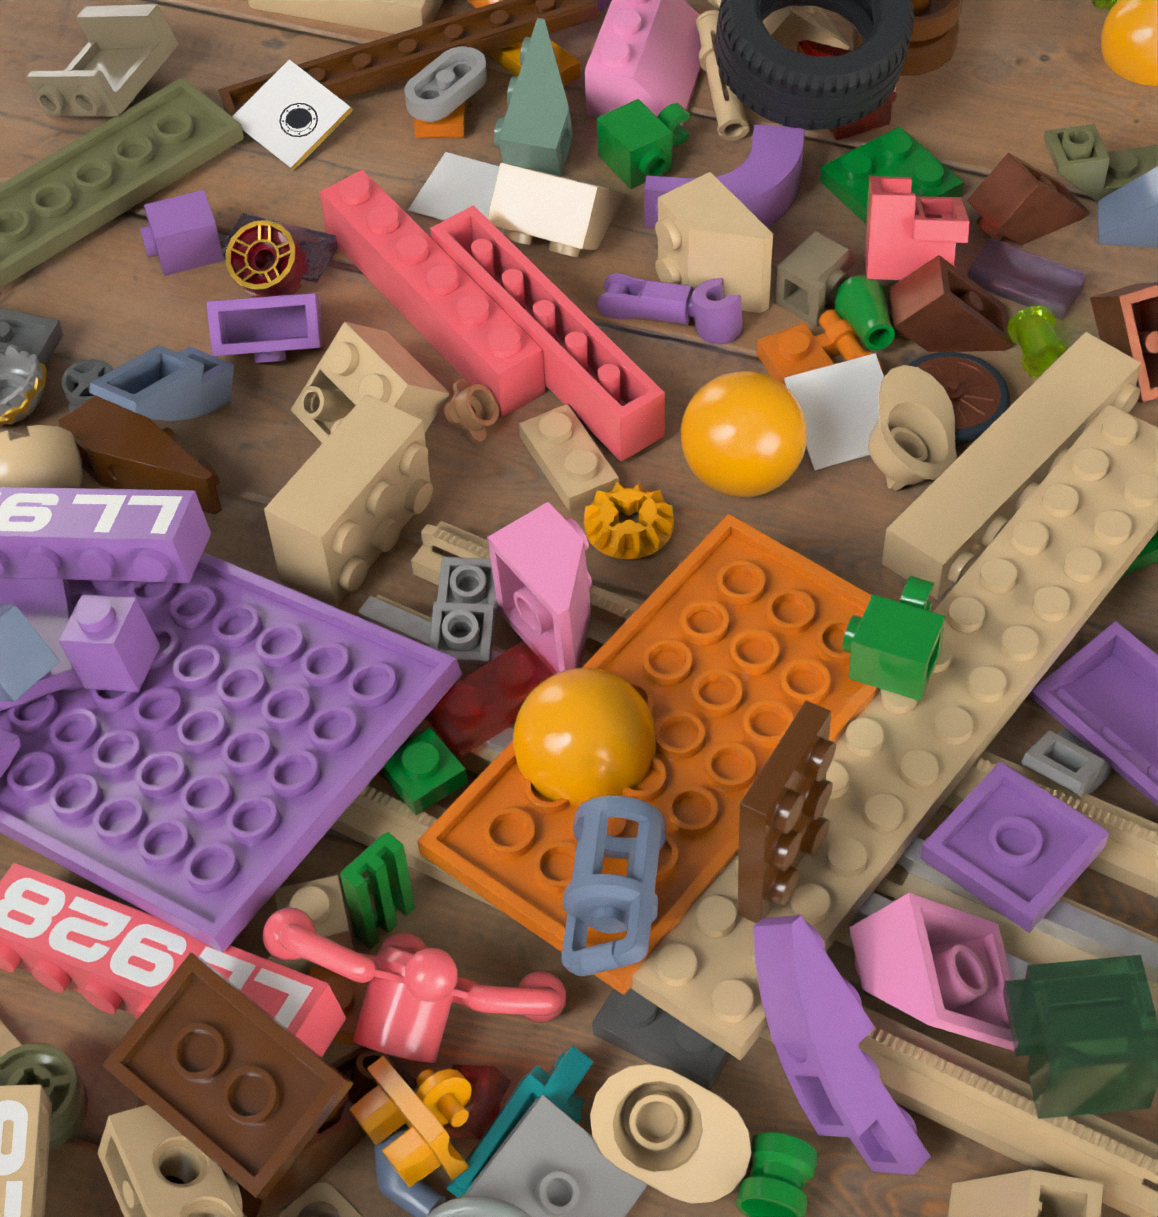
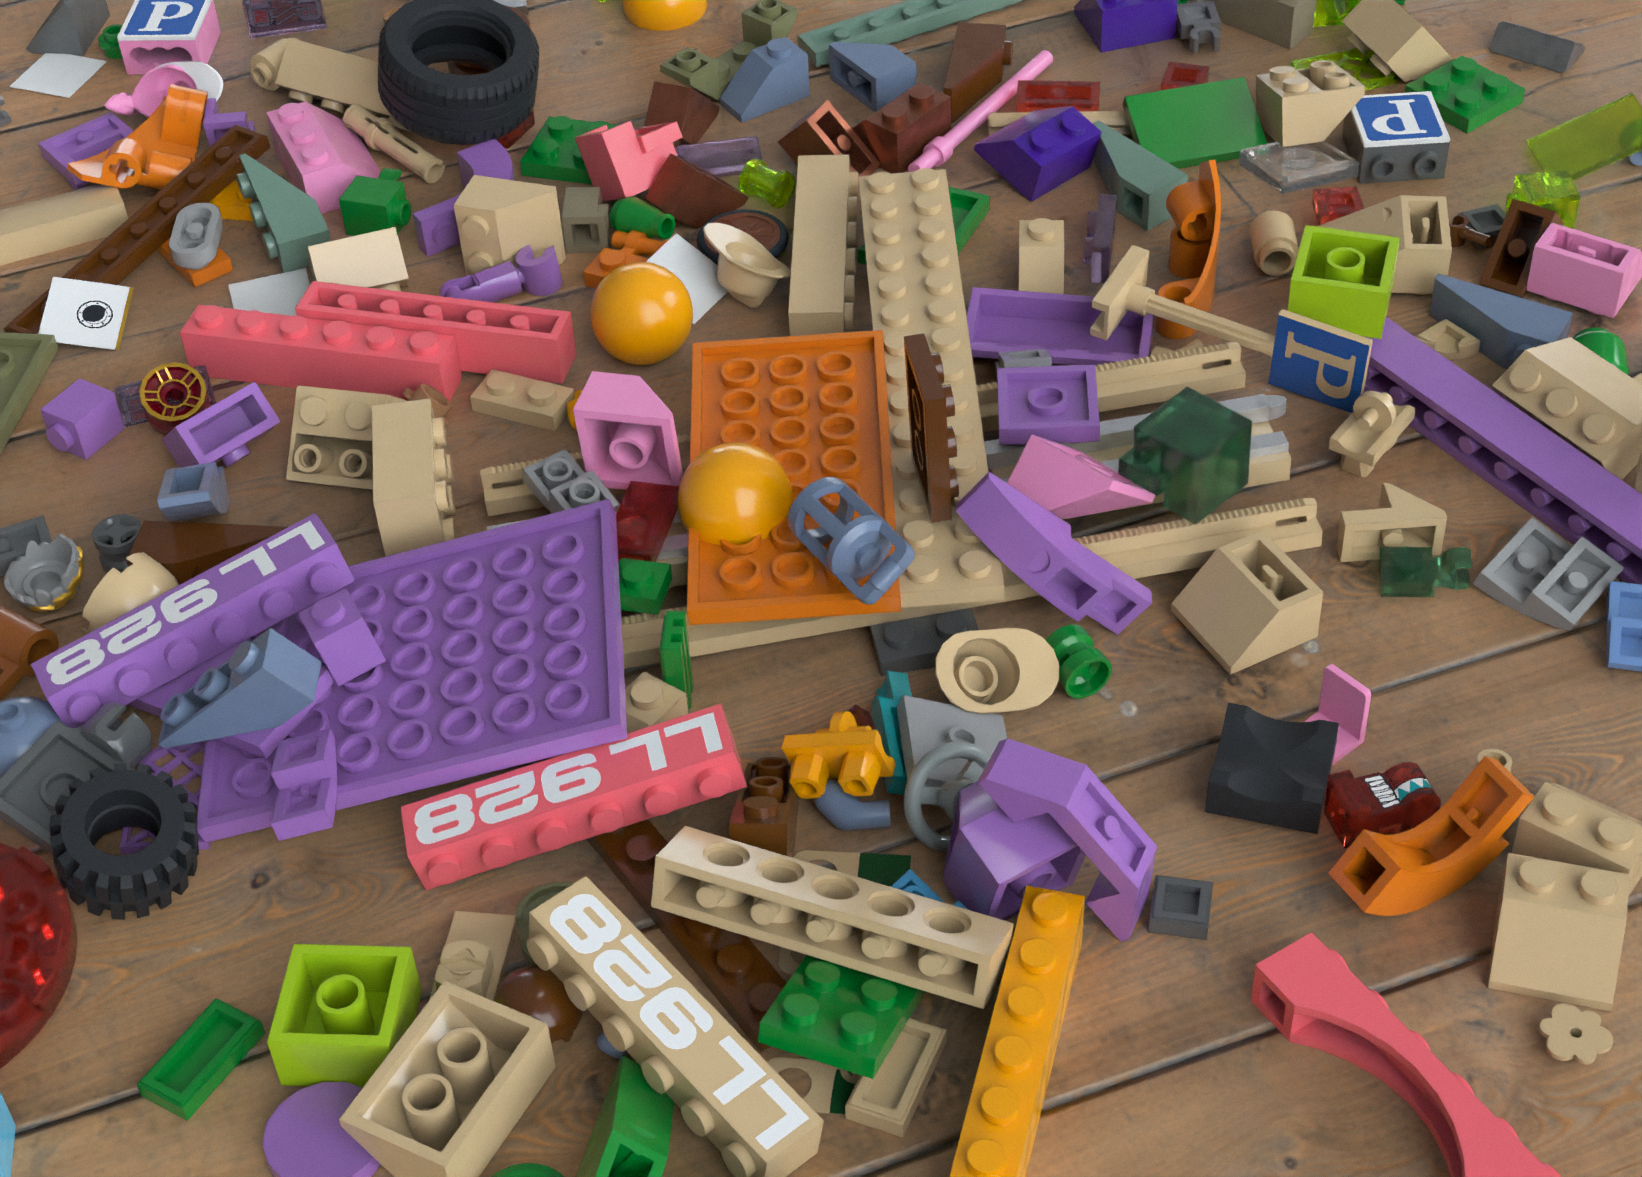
camera: 40 degrees left, 10 degrees down
(227, 1075) = (713, 780): reddish brown plate -> none
(409, 986) = (757, 697): coral wheel -> none
(896, 641) = (877, 335): green brick -> none

